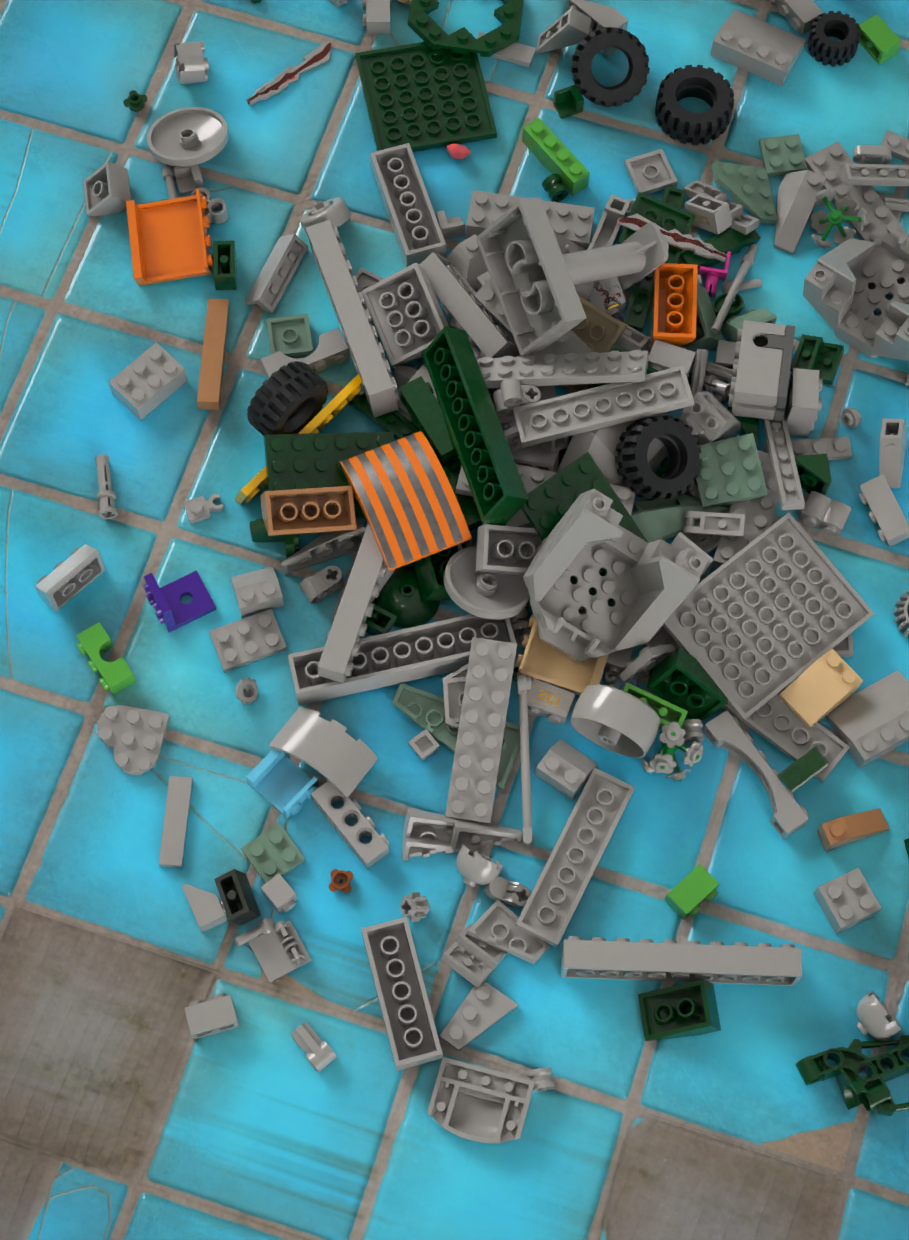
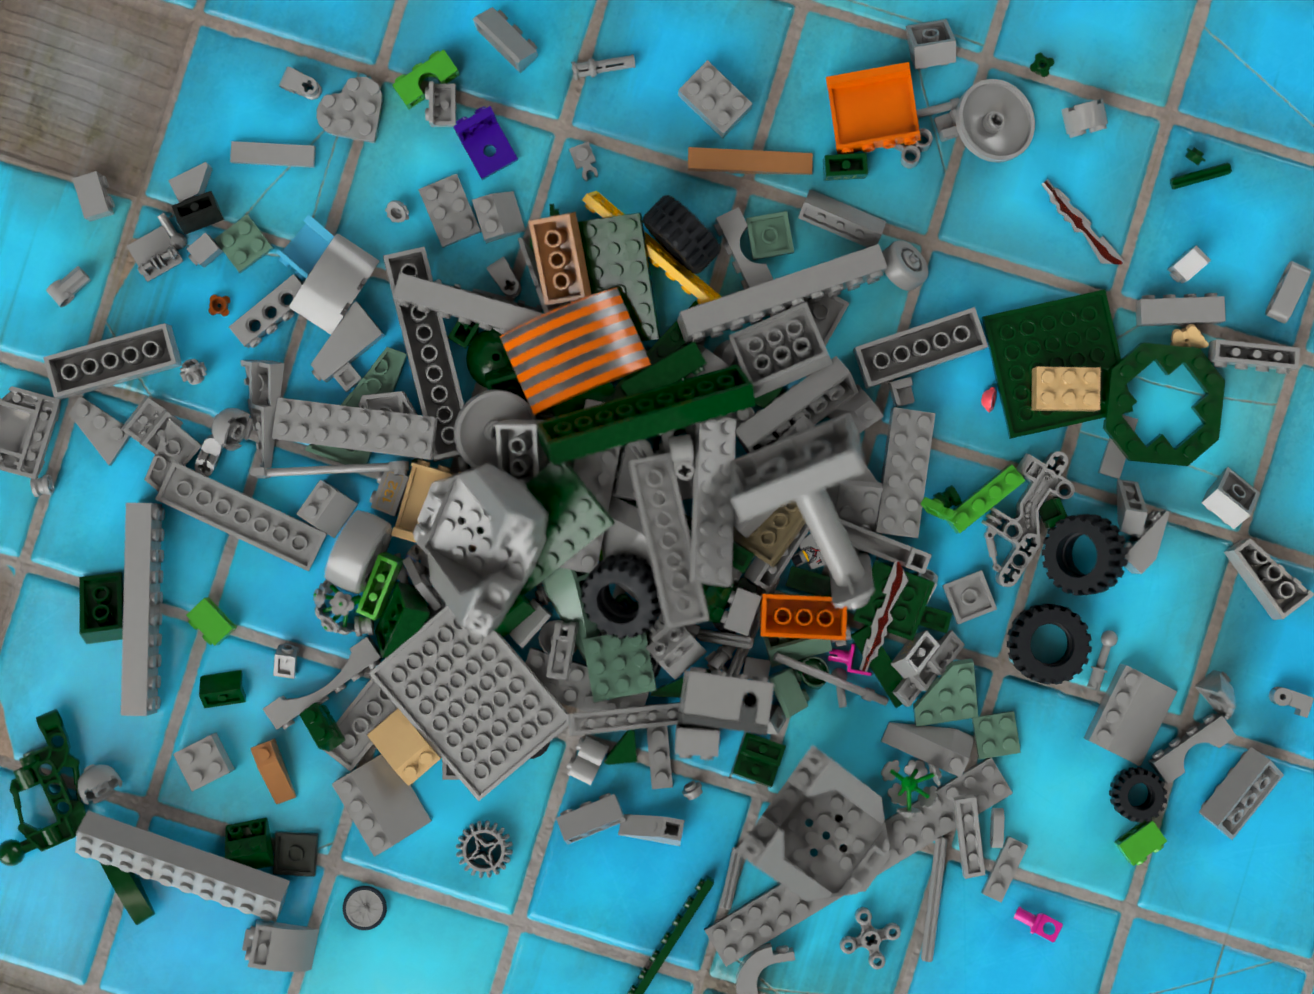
camera: 90 degrees right, 20 degrees up
(98, 791) = (297, 83): none -> light grey piece
(134, 643) = (441, 104): none -> light grey bracket
(389, 744) = (348, 341): none -> light grey slope
(451, 82) = (1065, 389): none -> tan brick
(567, 188) = (936, 508): none -> bright green plate
(573, 122) = (1042, 482): none -> light grey beam
(689, 59) = (1108, 640): none -> light grey pin
(733, 813) = (286, 661): none -> light grey bracket
(765, 882) = (222, 689): none -> dark green panel

